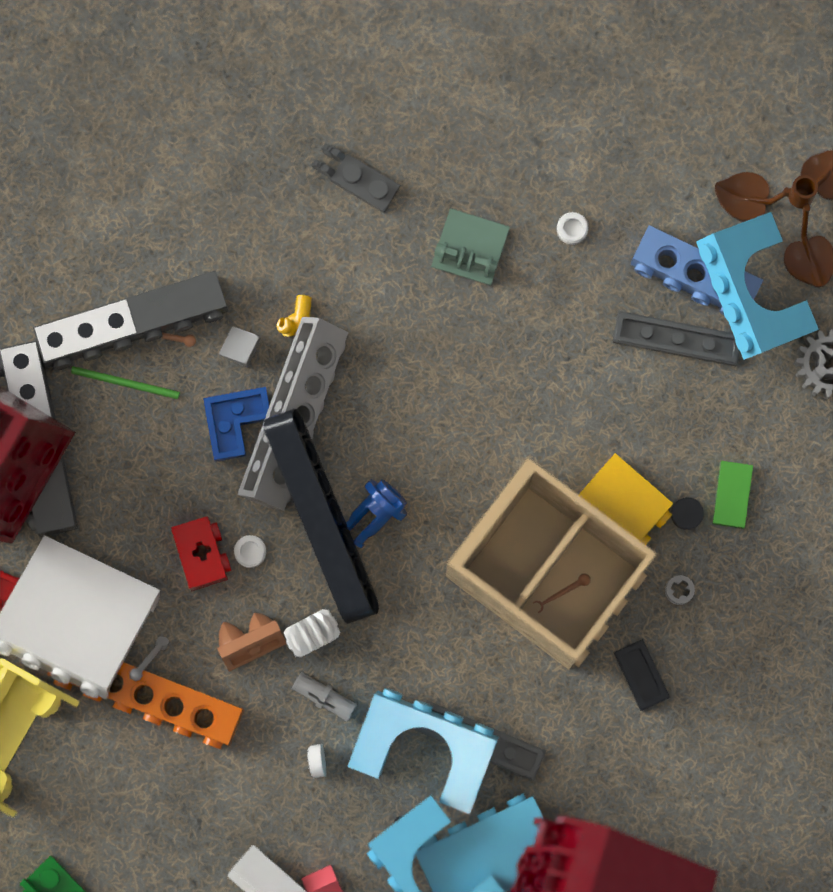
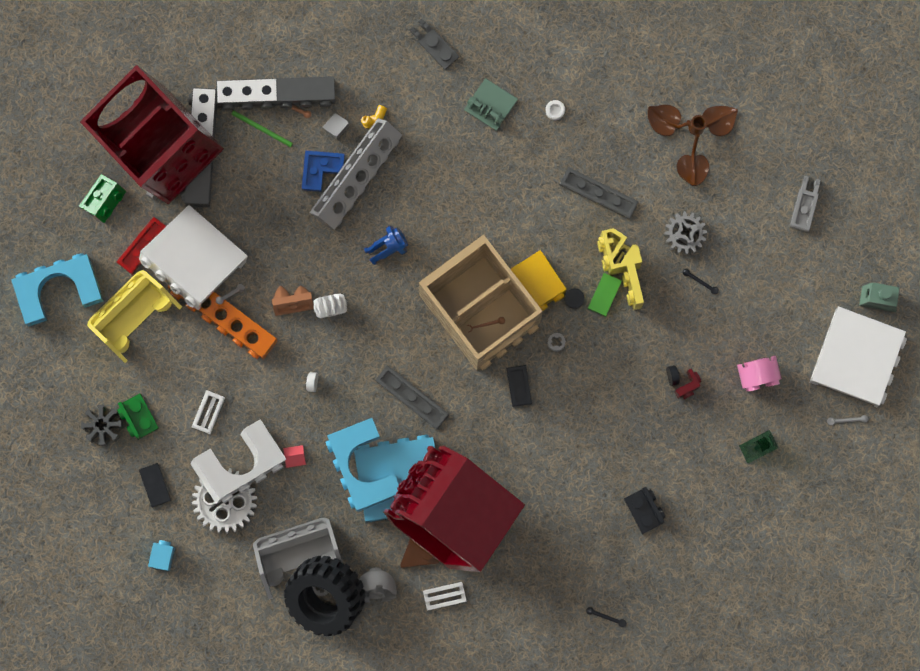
camera: 15 degrees right, 0 degrees up
(151, 882) = (202, 428): none -> white tile
(187, 539) = (273, 230): red brick -> none
(250, 551) = (307, 248): white tile -> none
(321, 515) = (355, 238): black beam -> none
(324, 696) = (327, 345): light grey pin -> none
(469, 745) = (404, 398): medium azure arch -> none
(686, 257) = (618, 146): medium blue brick -> none
(722, 415) = (611, 243): none -> light yellow piece
(752, 325) = (644, 197): medium azure arch -> none

